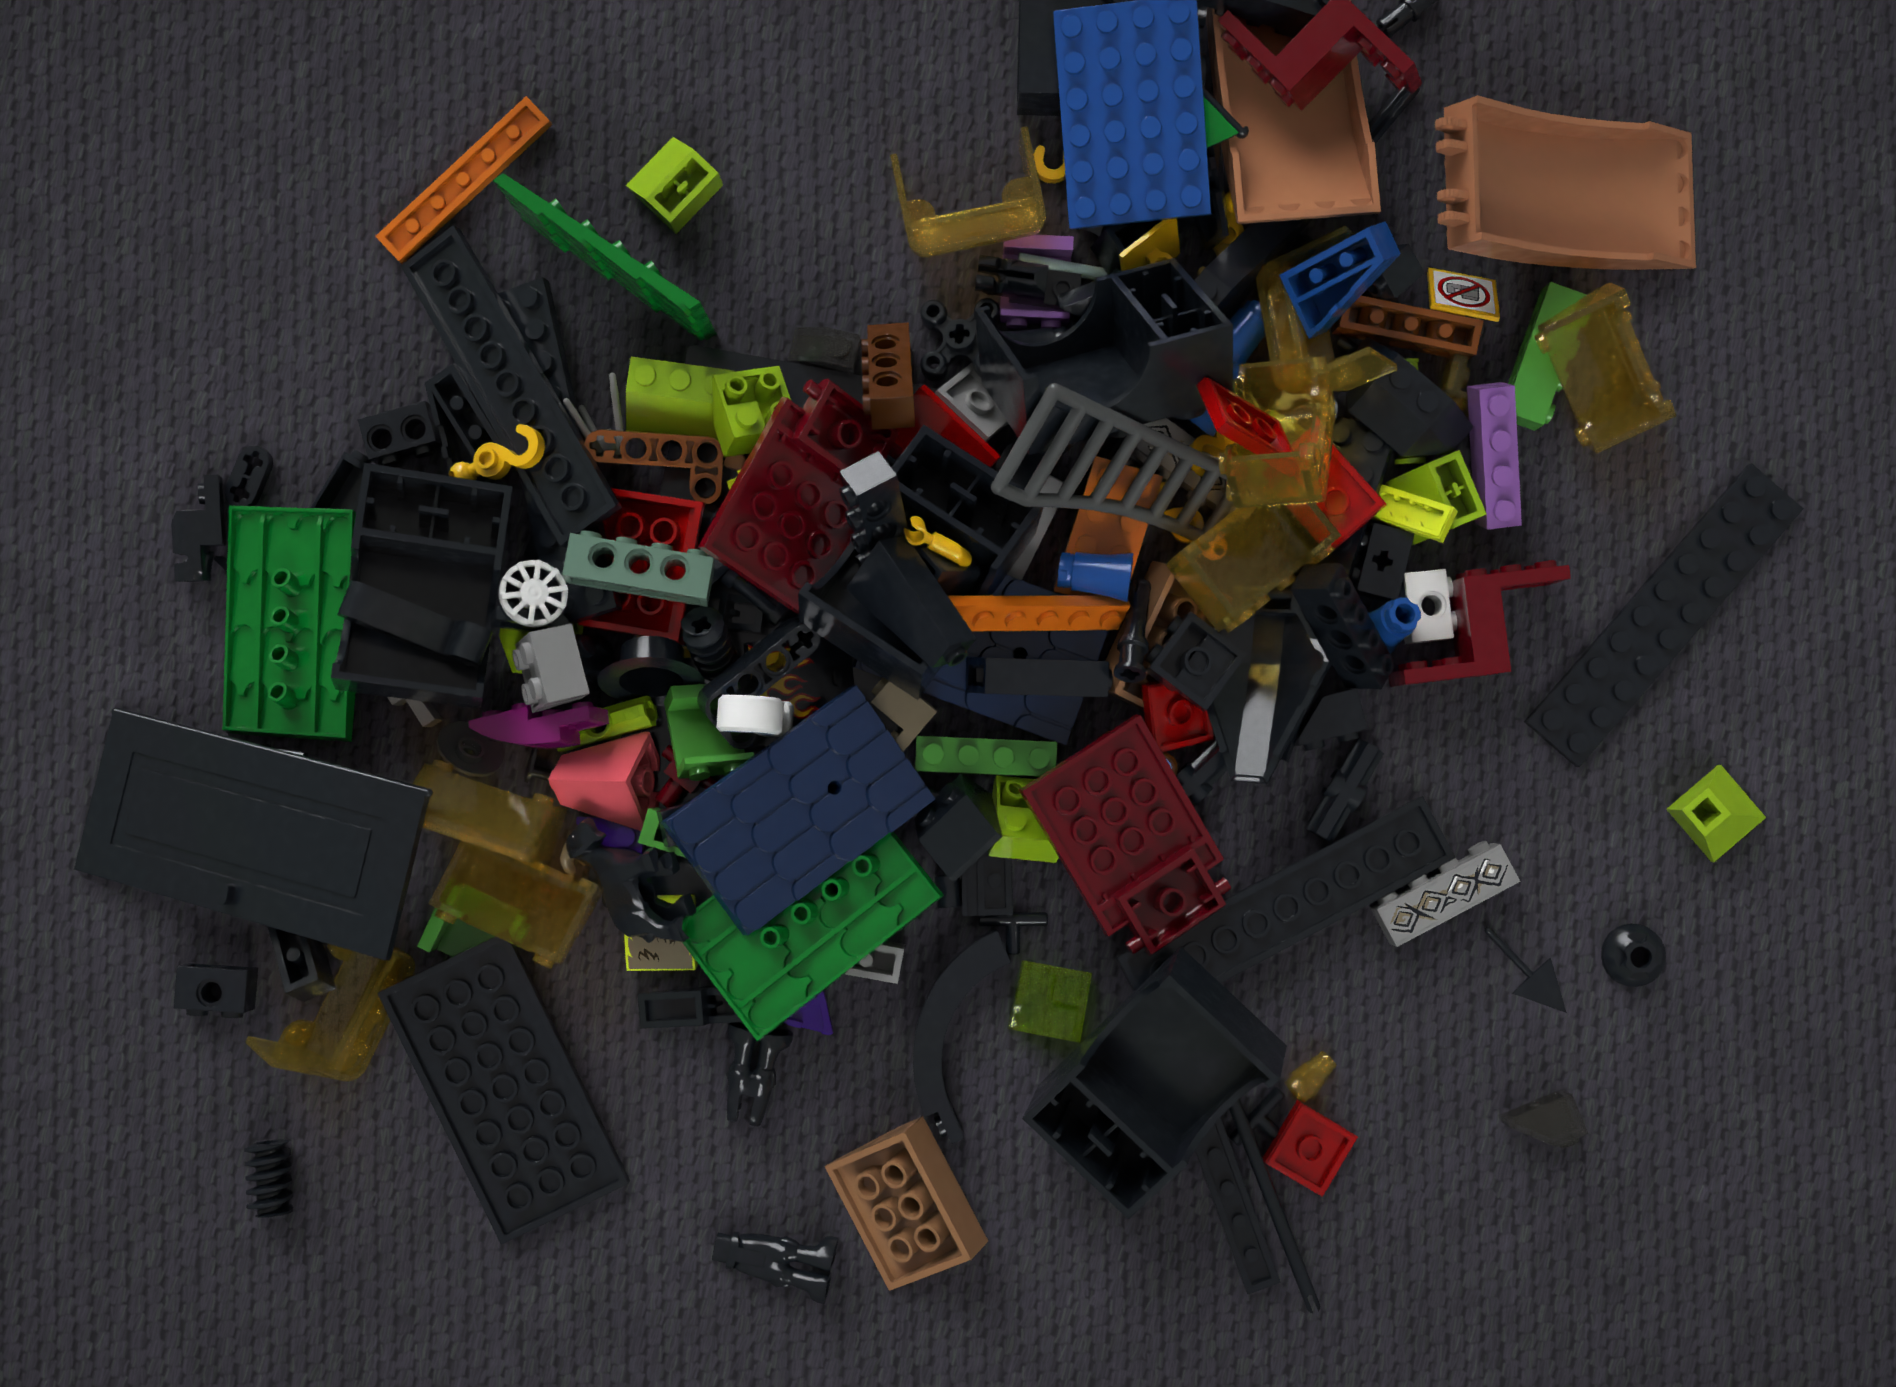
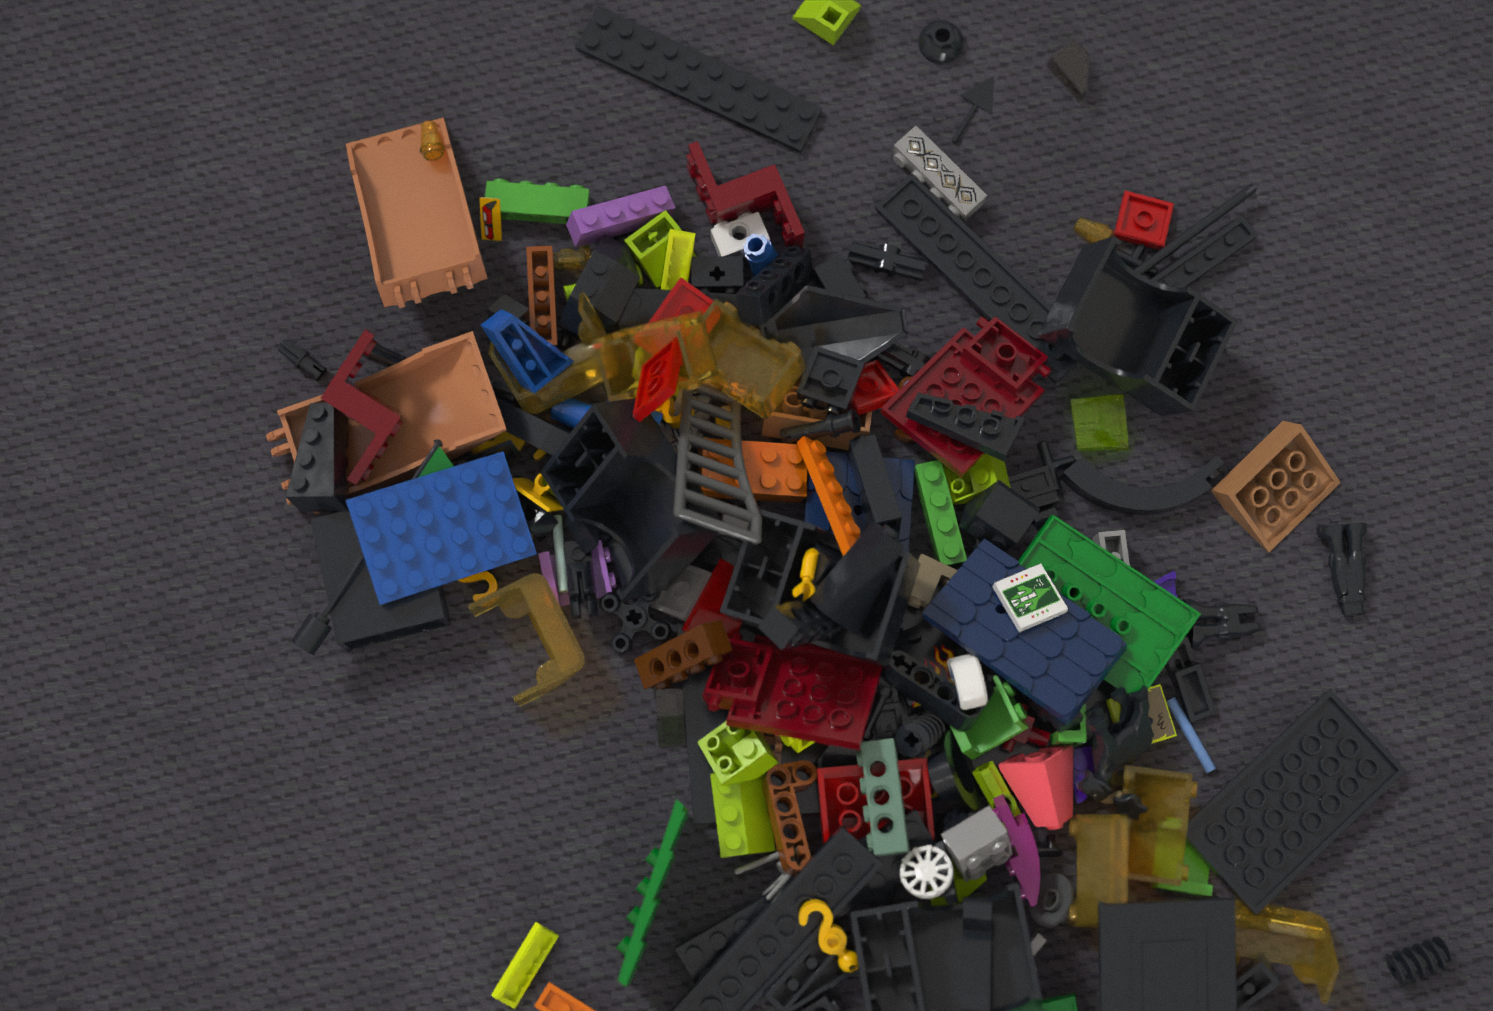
camera: 105 degrees left, 10 degrees down
(550, 878) = (1130, 805): none -> black plate
(577, 98) = (525, 965): none -> neon yellow plate
(623, 989) = (1191, 735): none -> medium blue bar
(675, 184) = (572, 869): lime slope -> none
(838, 828) = (1030, 597): none -> tile
(1074, 830) = (978, 429): none -> black wing
(1096, 573) = (788, 463): blue plant -> none
(1463, 294) = (507, 267): piece -> none
(1536, 289) = (490, 219): none -> yellow sticker
(1603, 369) = (540, 156): clear yellow windscreen -> none
(1664, 239) = (430, 141): none -> clear yellow cone

